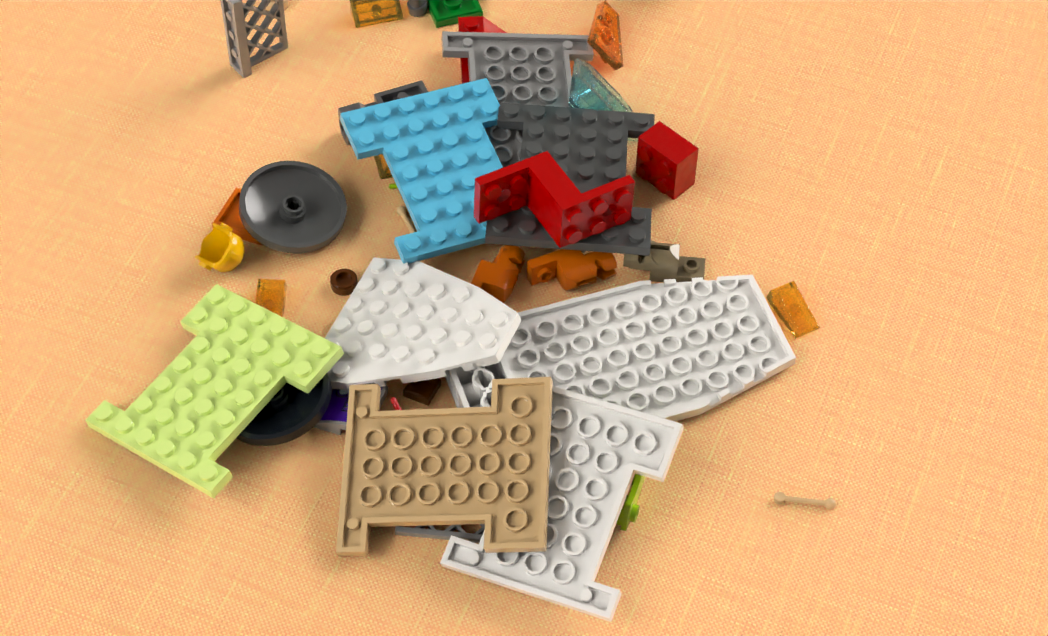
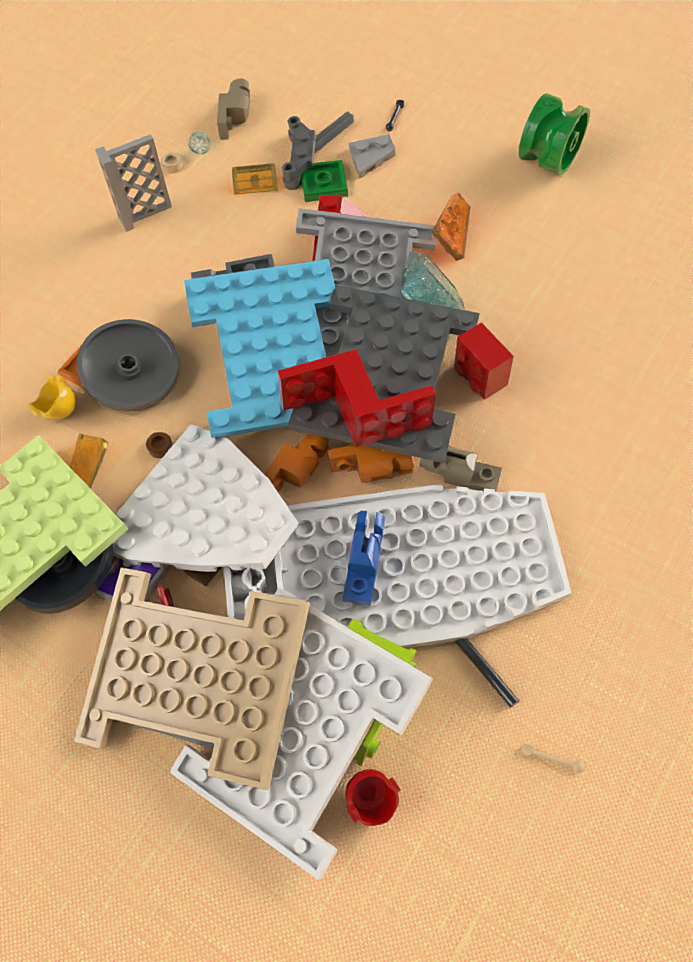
camera: 15 degrees right, 10 degrees up
(589, 351) = (363, 560): none -> blue plate
(643, 549) = (371, 797): none -> red cap
(728, 437) = (488, 672): none -> black bar
(792, 309) = (579, 536): clear yellow slope -> none

